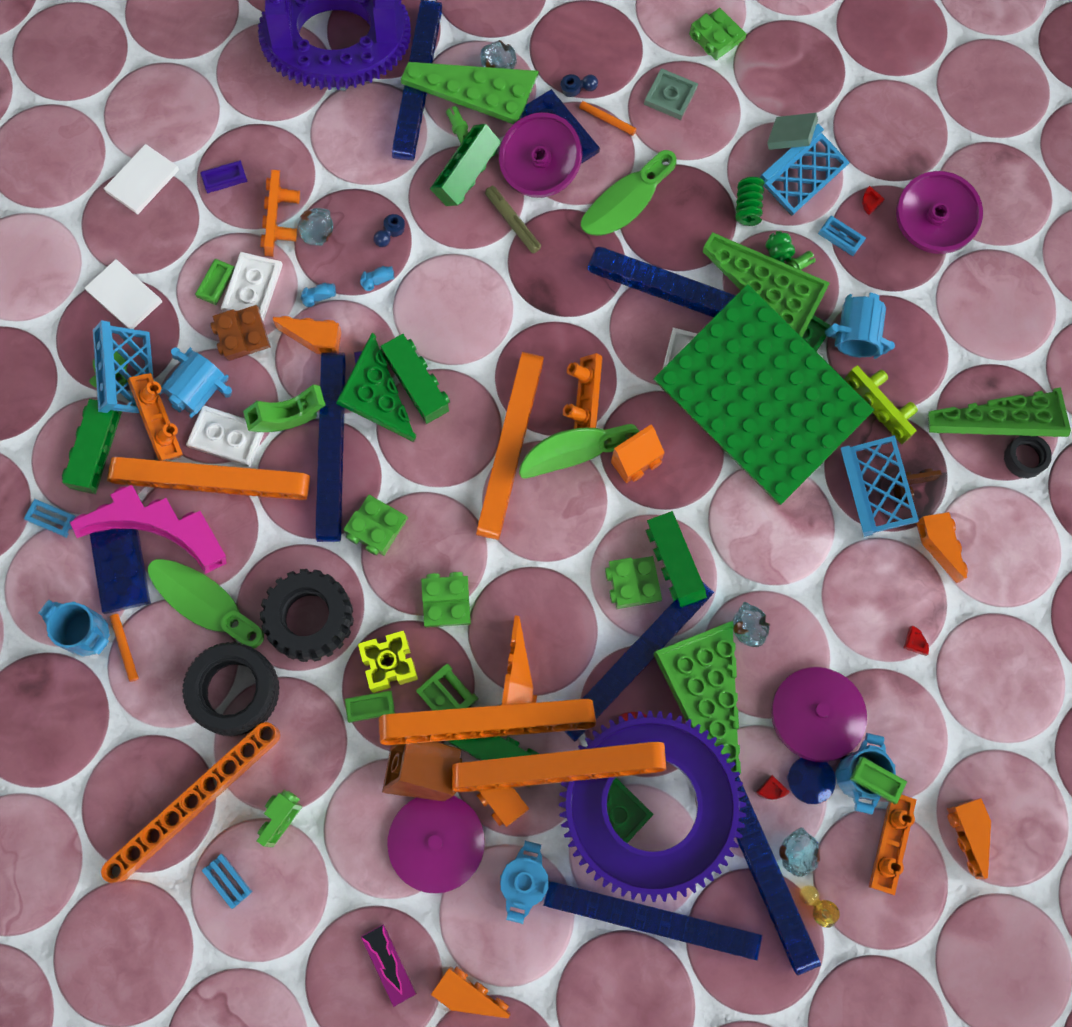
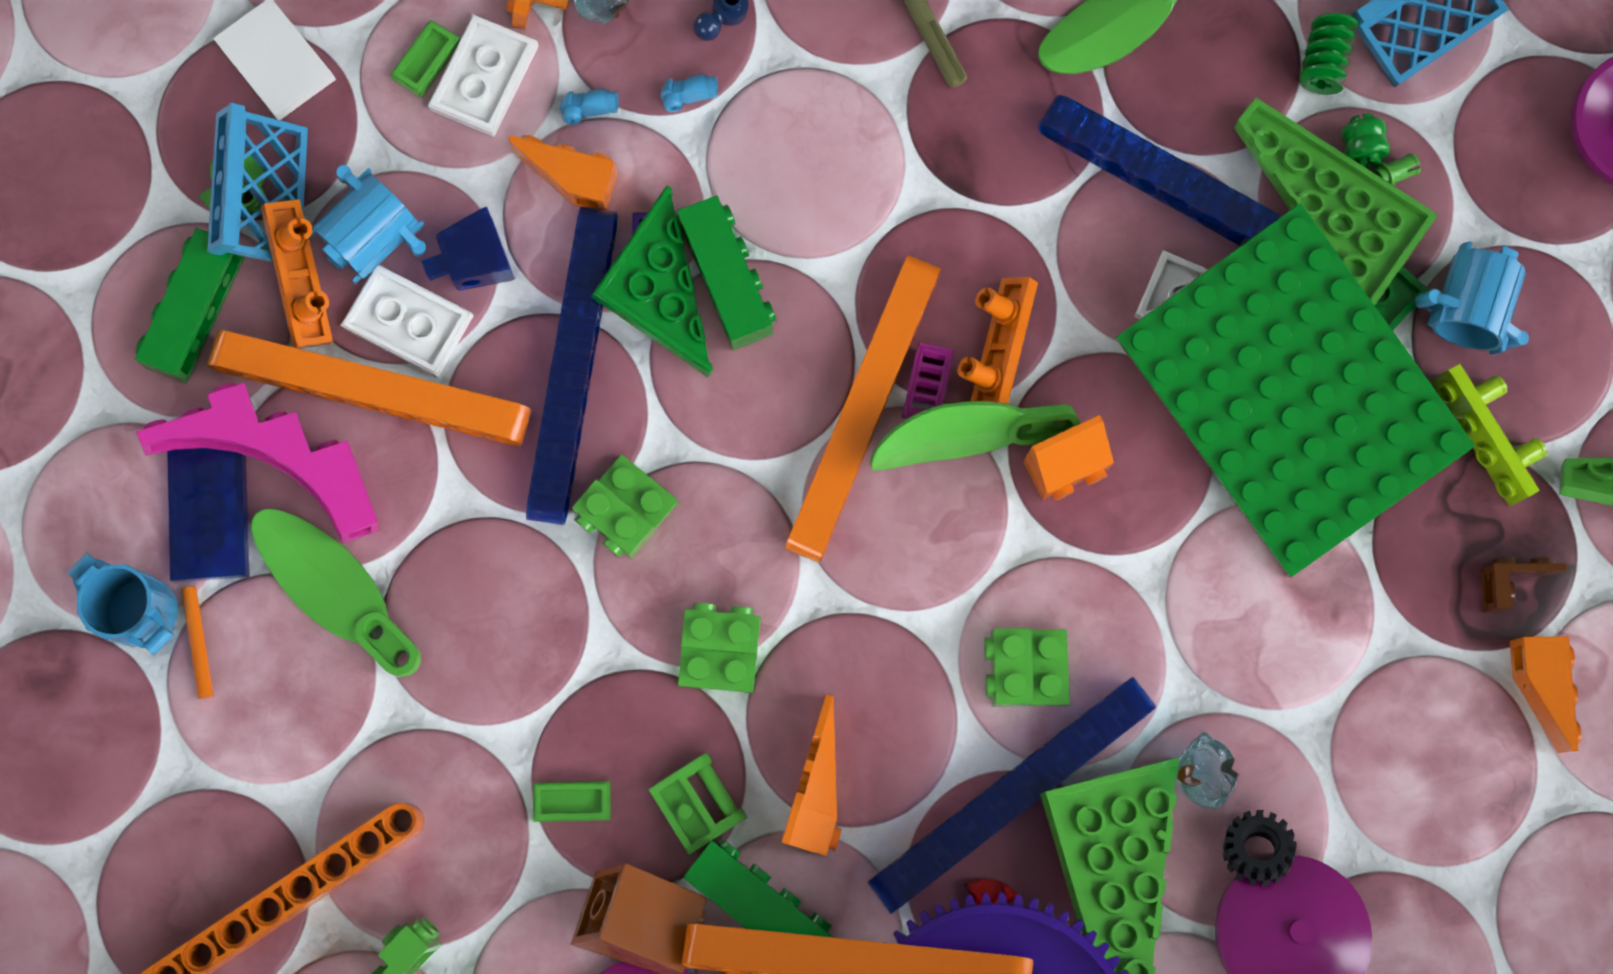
camera: 10 degrees right, 5 degrees up
(66, 525) = (82, 395): dark azure tile -> none
(200, 675) = (301, 734): black tyre -> none
(240, 332) = (453, 152): dark orange plate -> none
(258, 386) = (470, 253): none -> clear blue torso
(286, 414) = (506, 301): bright green arch -> none
(289, 591) = (450, 613): black tyre -> none
(375, 654) = (592, 720): neon yellow brick -> none
(486, 721) = (753, 865): orange beam -> none
(546, 406) = (932, 353): none -> magenta slope
(676, 558) = (1103, 643): green brick -> none
(789, 677) = (1263, 827): none -> black tyre
(839, 238) = (1469, 139): dark azure tile -> none
(859, 490) = (1425, 573): dark azure fence -> none
(871, 200) = (1533, 80): red tile -> none
(916, 641) = (1474, 840): red tile -> none

